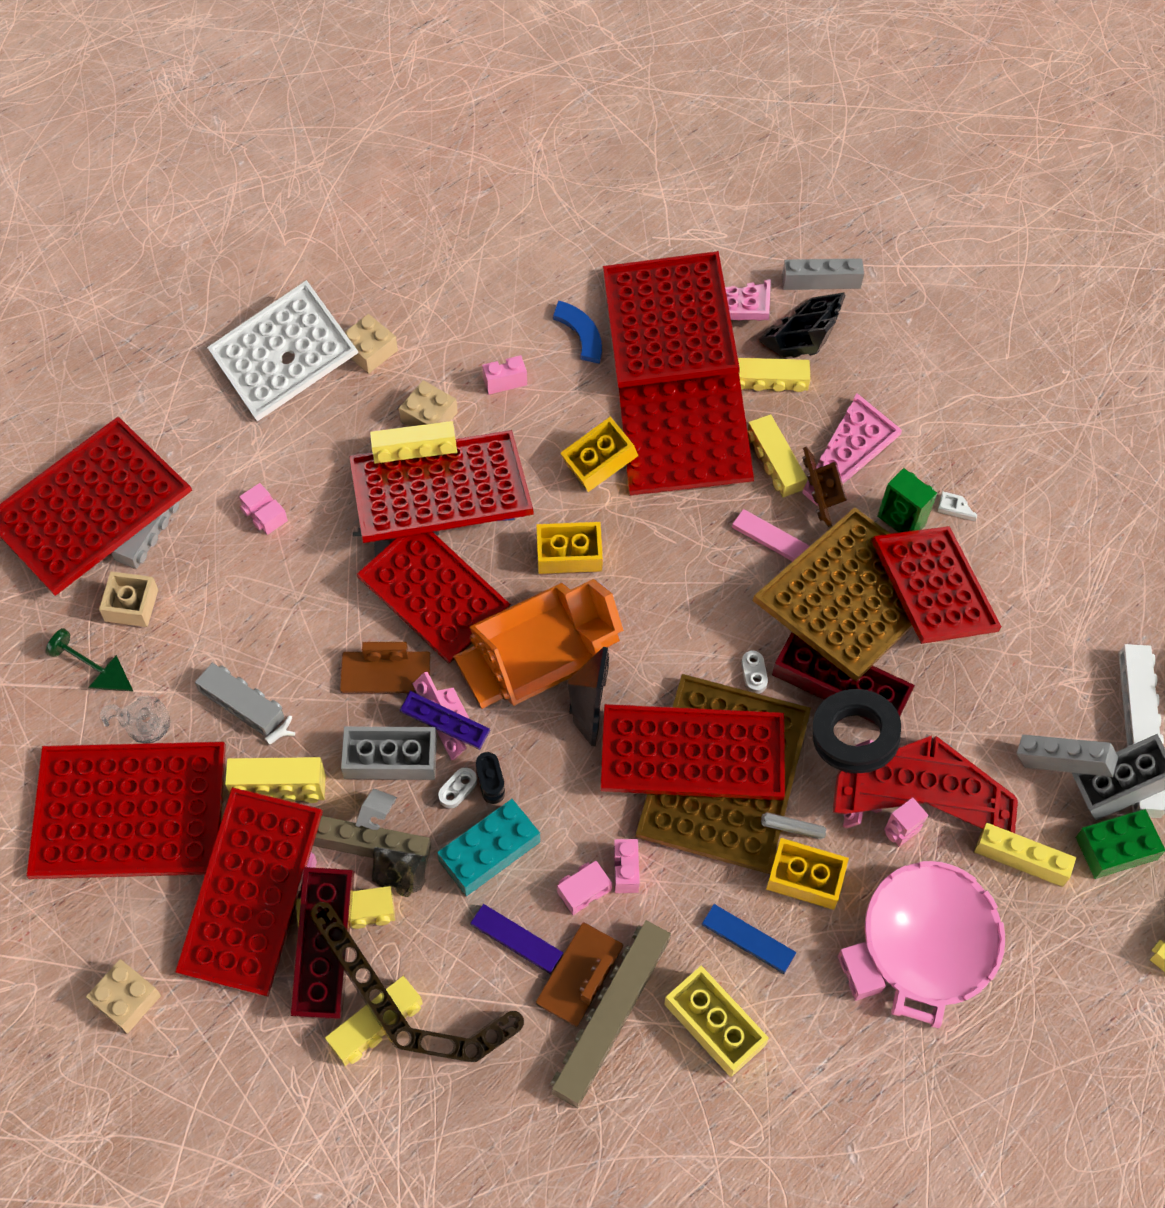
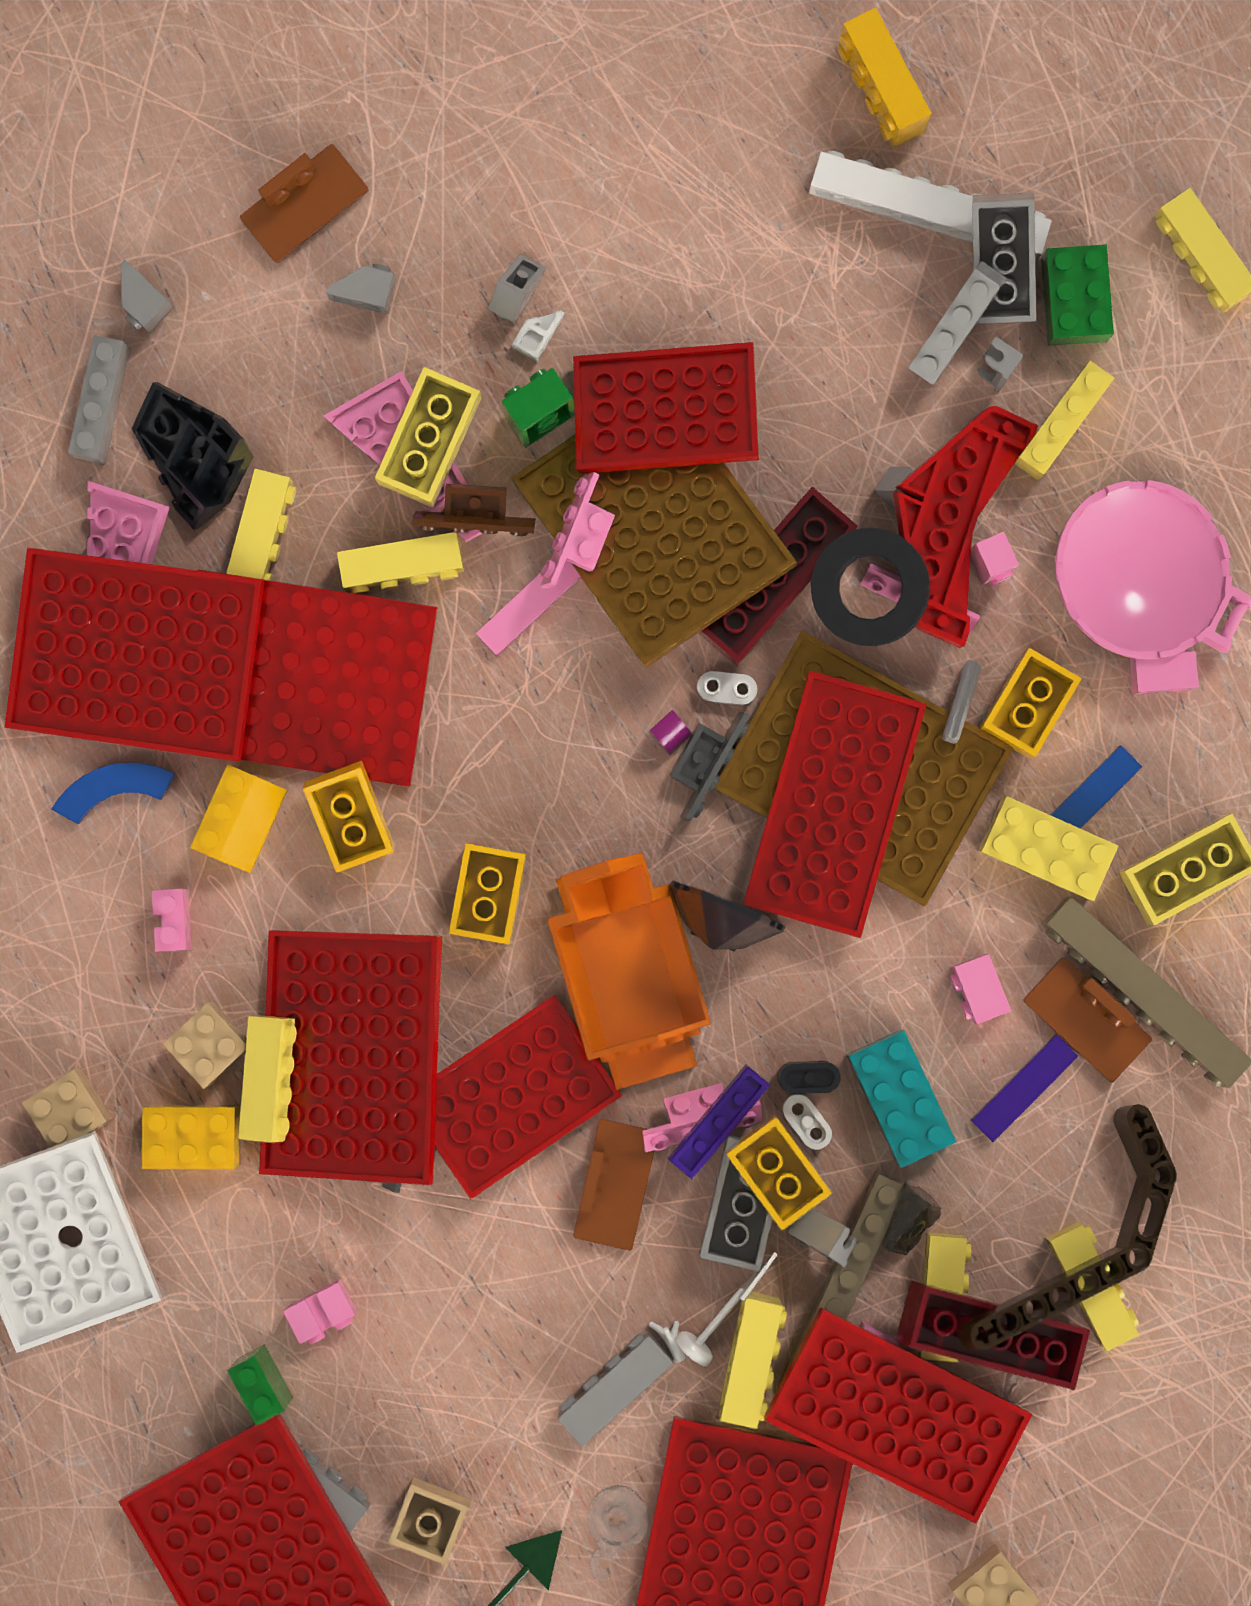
camera: 75 degrees left, 25 degrees up
(208, 477) = (260, 1384): none -> green brick
(278, 744) = (695, 1346): none -> white piece
(364, 410) = (190, 1136): none -> yellow brick
(416, 757) = (778, 1172): none -> yellow brick
(580, 398) = (238, 818): none -> yellow slope
(626, 866) = (979, 930): bright pink brick -> none
(698, 663) = (703, 759): none -> dark grey bracket
(702, 912) = (1048, 848): none -> light yellow brick
(713, 638) = (670, 732): none -> magenta brick
(829, 546) = (582, 533): none -> bright pink bracket
(864, 446) = (428, 437): none -> light yellow brick
(893, 284) = (141, 300): none -> light grey slope
(947, 400) = (365, 288): none -> light grey slope
(981, 484) = (516, 288): none -> light grey slope
(991, 355) = (302, 201): none -> dark orange bracket
(1049, 798) = (1003, 360): none -> light grey hinge

